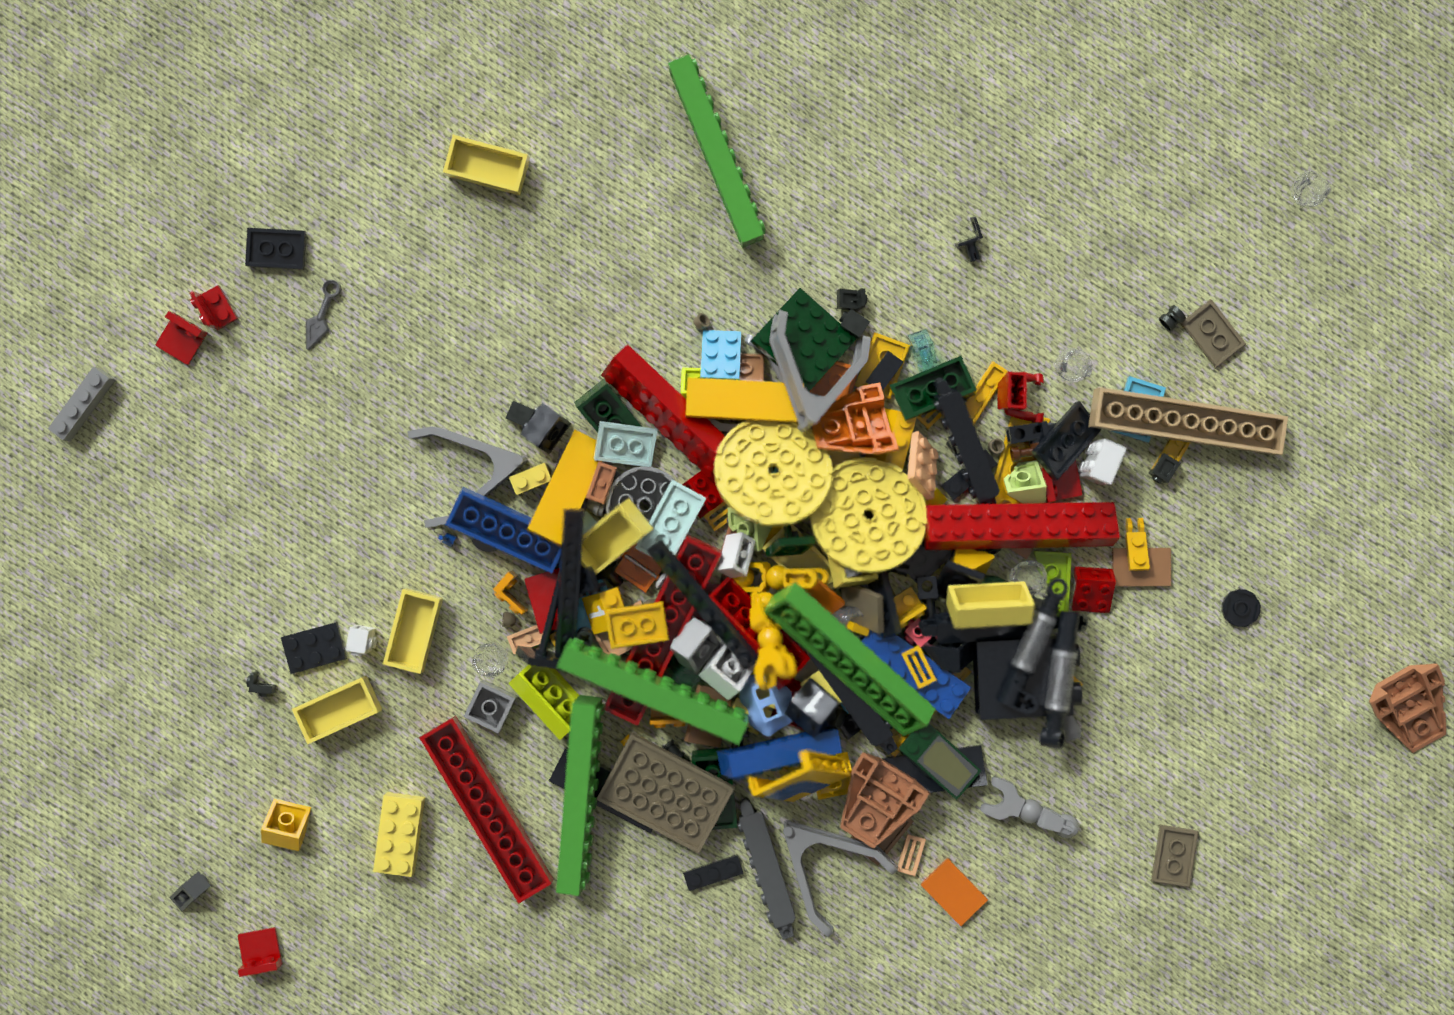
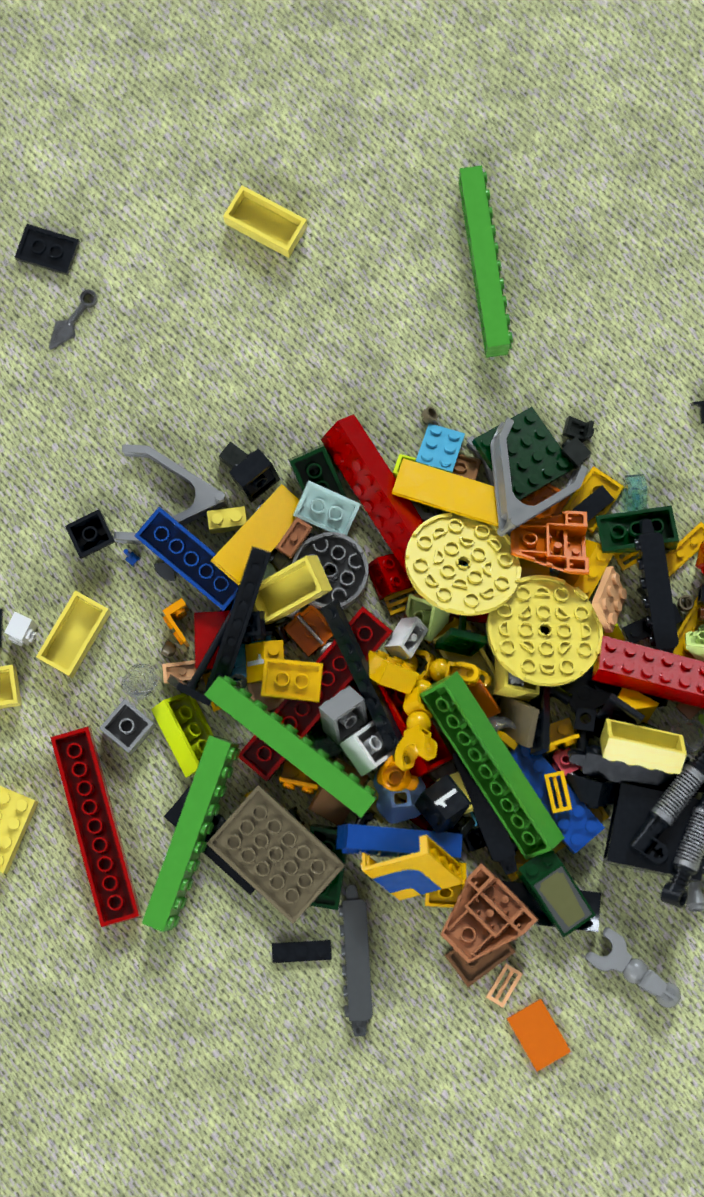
camera: 20 degrees right, 10 degrees down
(401, 529) = (90, 533): none -> black slope
(672, 517) = (354, 586): light aqua plate -> none
(731, 595) = (391, 671): none -> yellow slope
(760, 698) = (395, 779): none -> light orange hair
(802, 836) = (395, 937): light grey piece -> none

